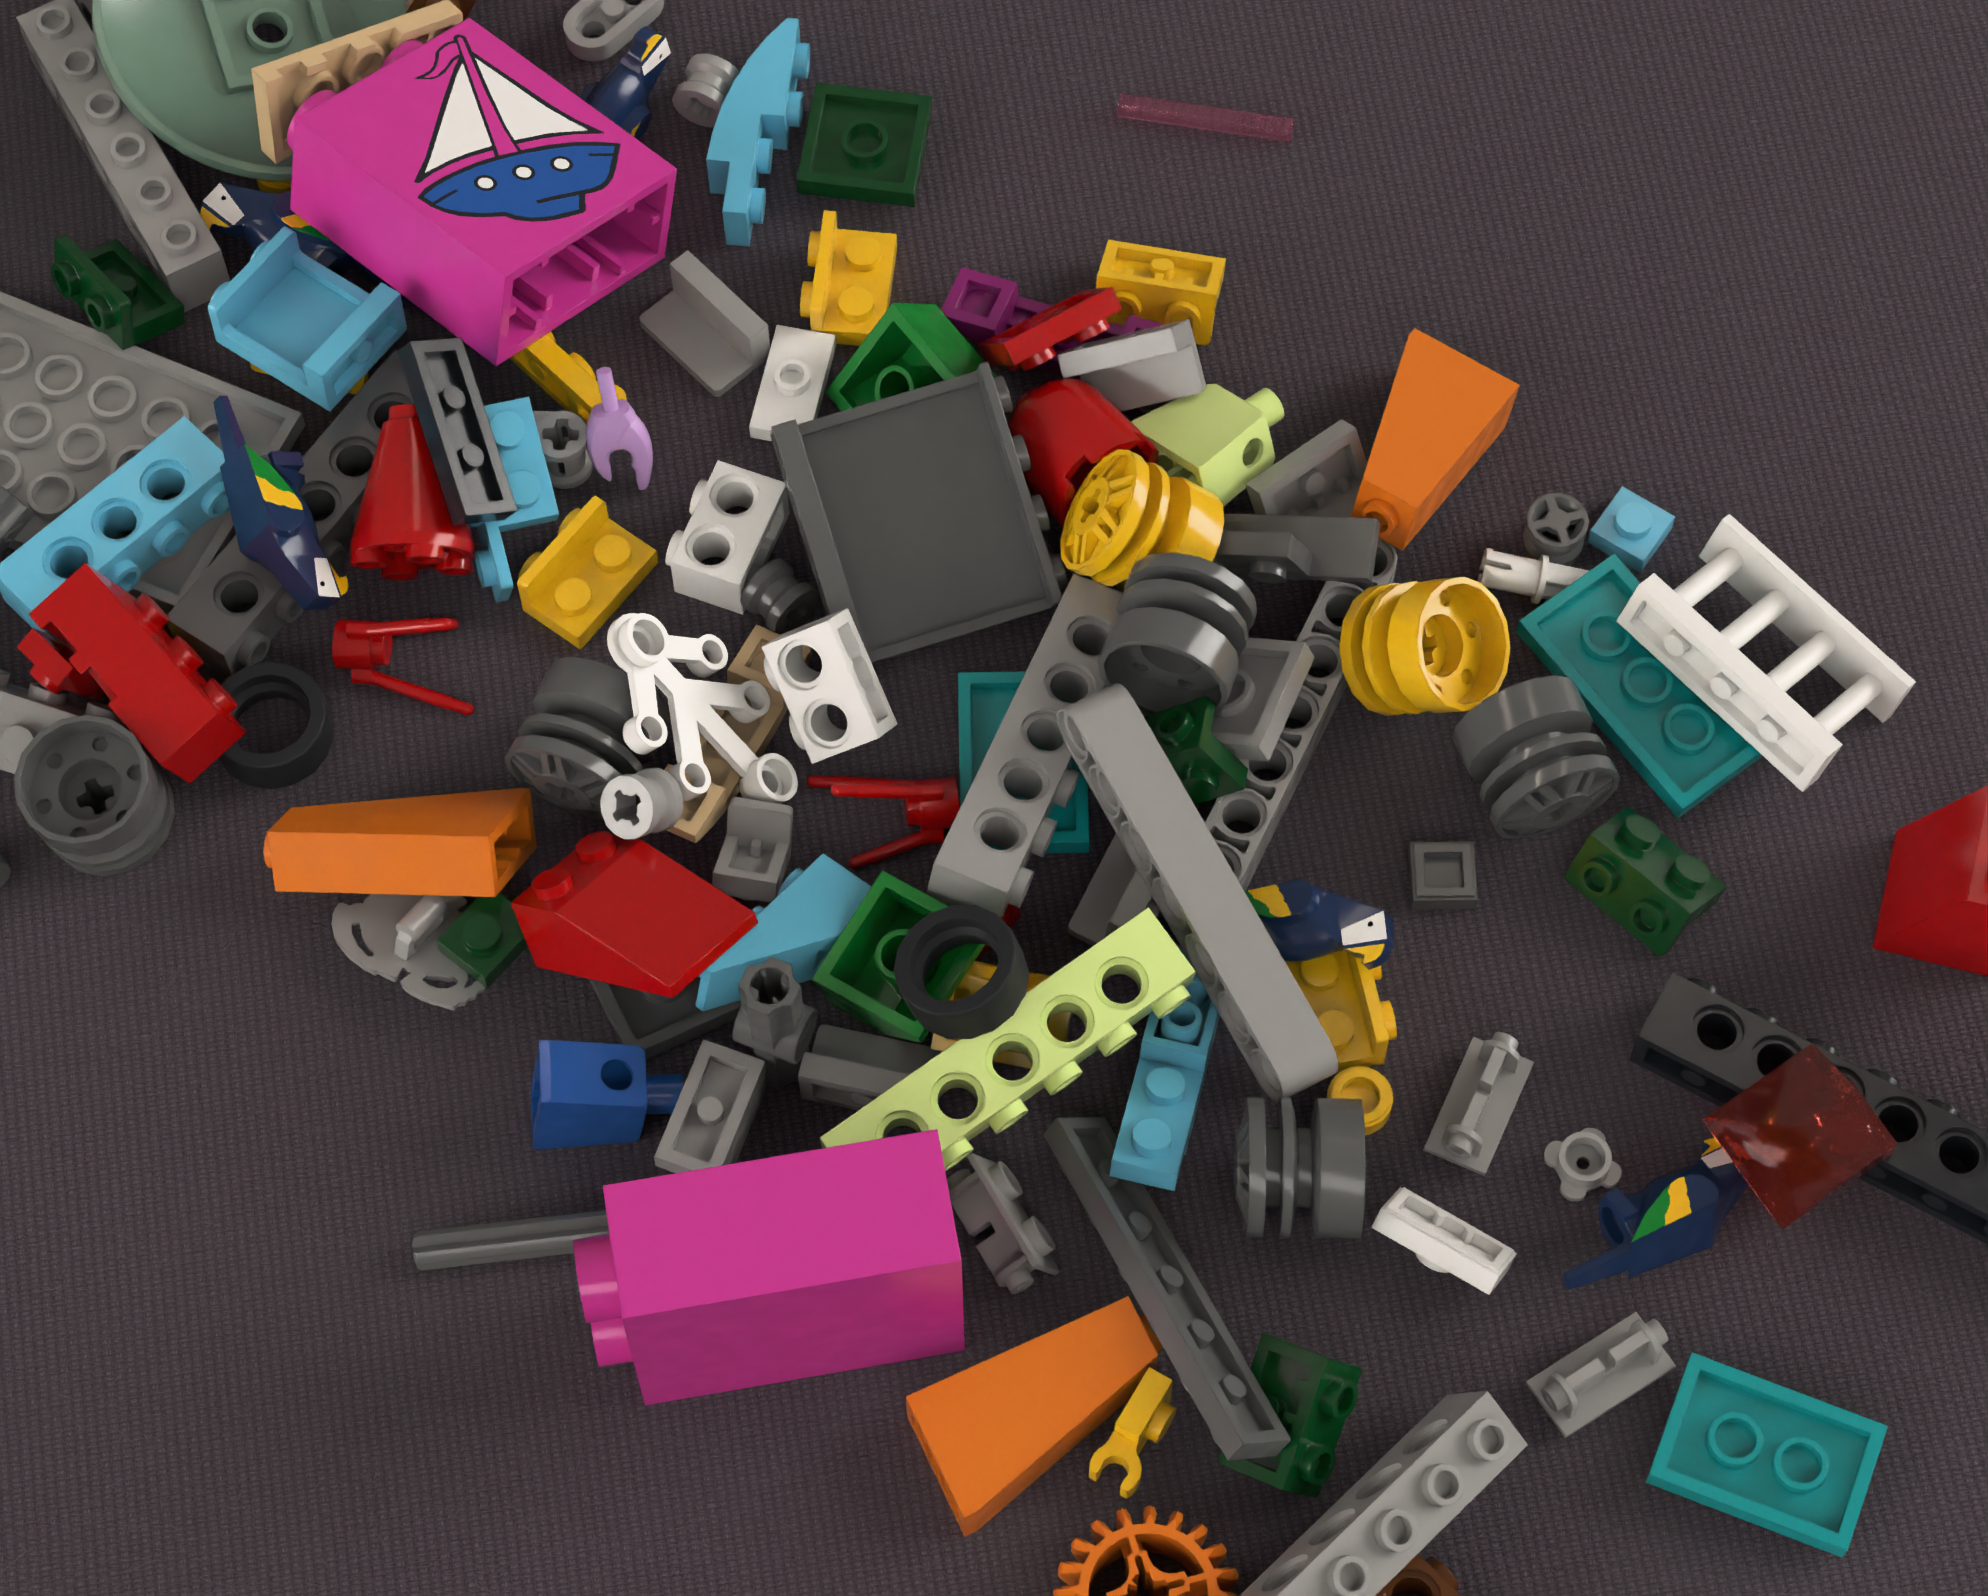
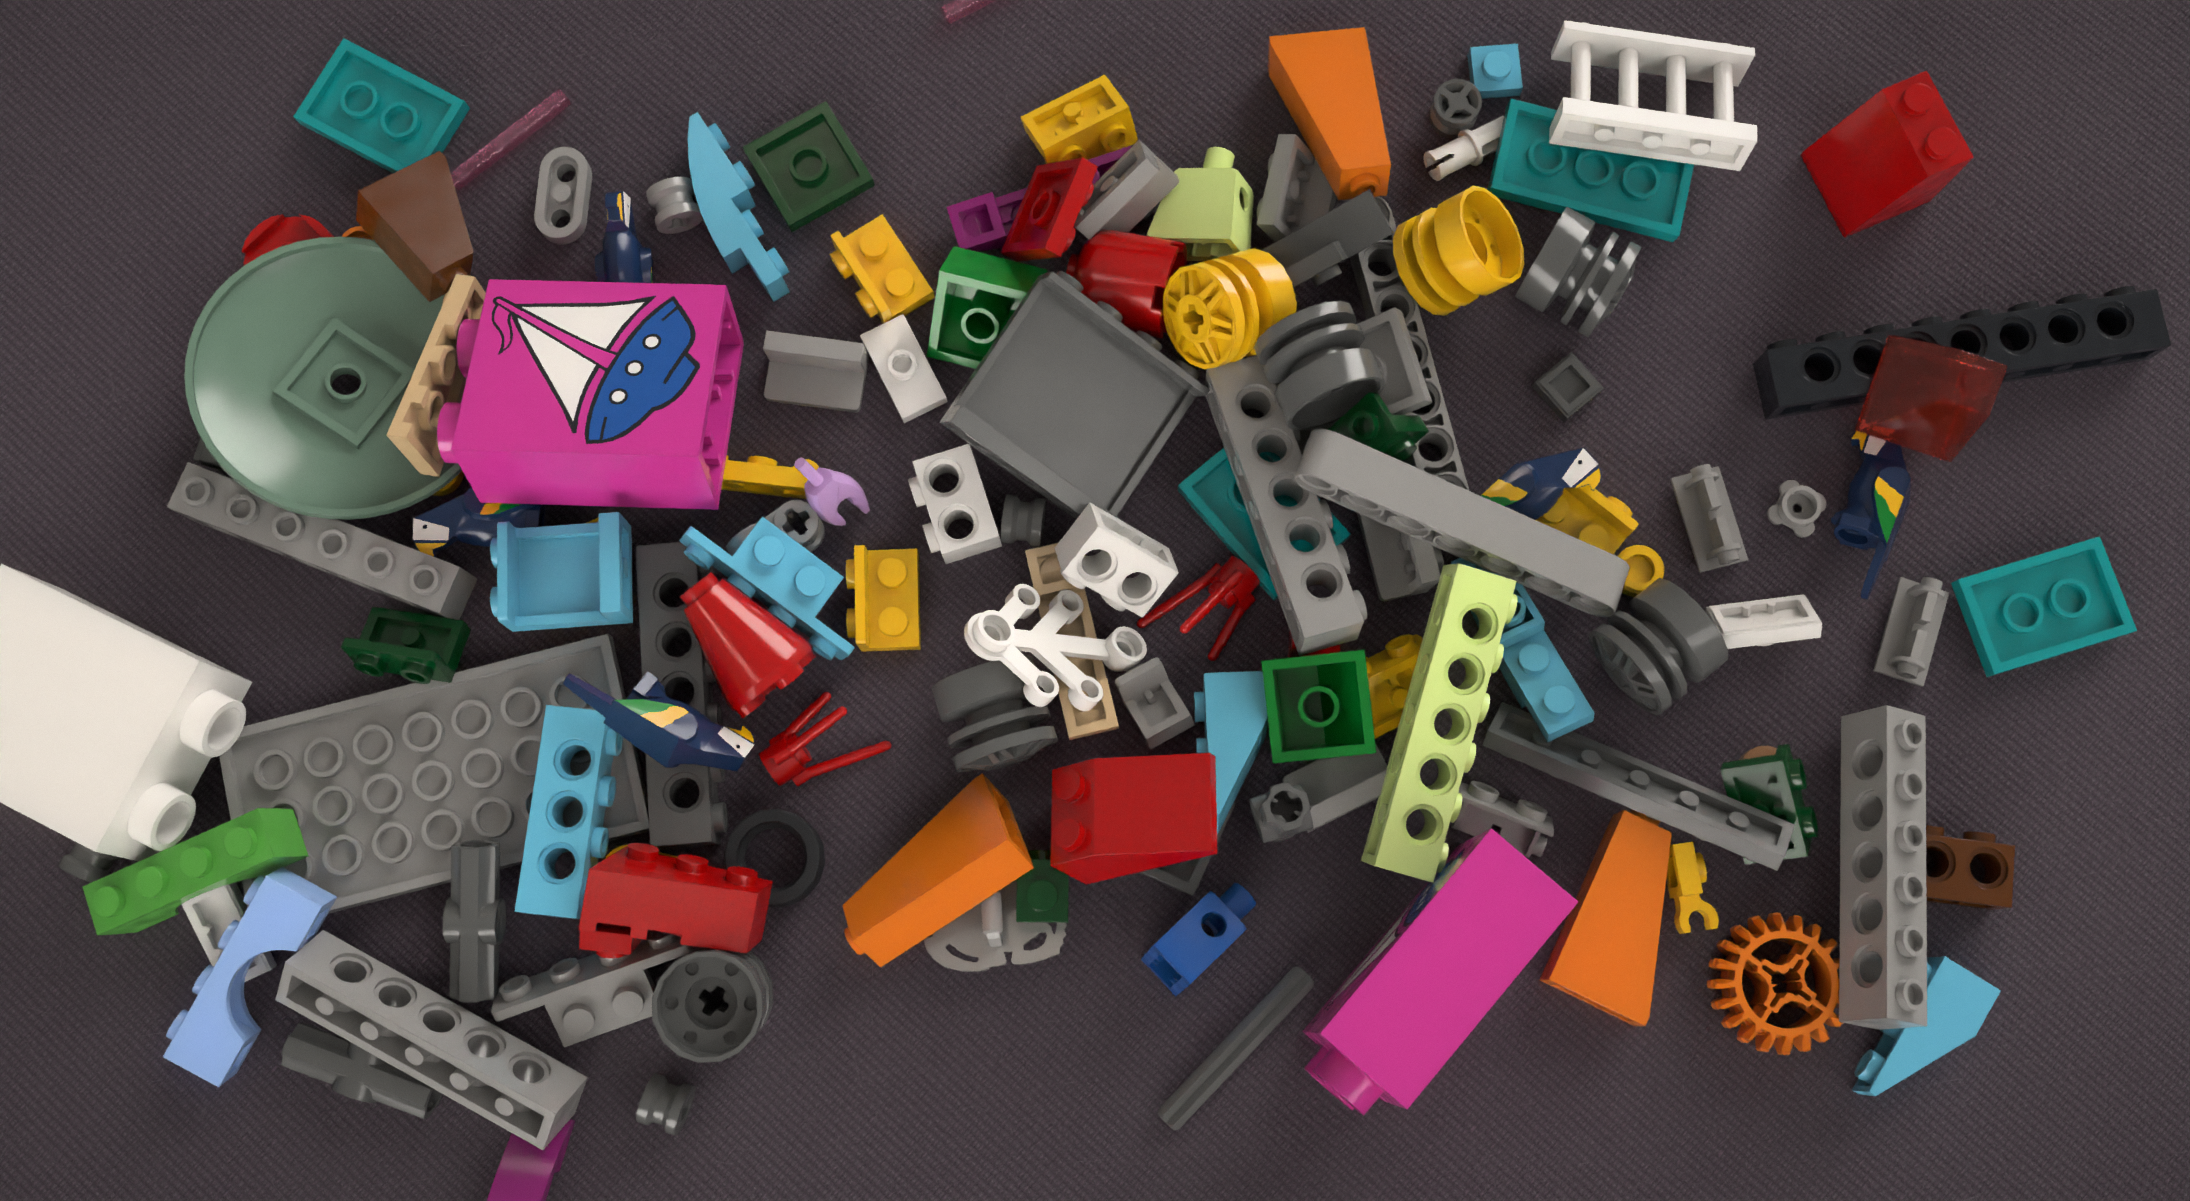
camera: 35 degrees left, 15 degrees up
(457, 431) = (743, 580): black plate -> none
(659, 805) = (1073, 722): light grey wheel -> none
(713, 1110) = (1281, 897): light grey panel -> none
(935, 937) = (1340, 695): black tyre -> none
(1643, 880) = (1690, 298): dark green bracket -> none

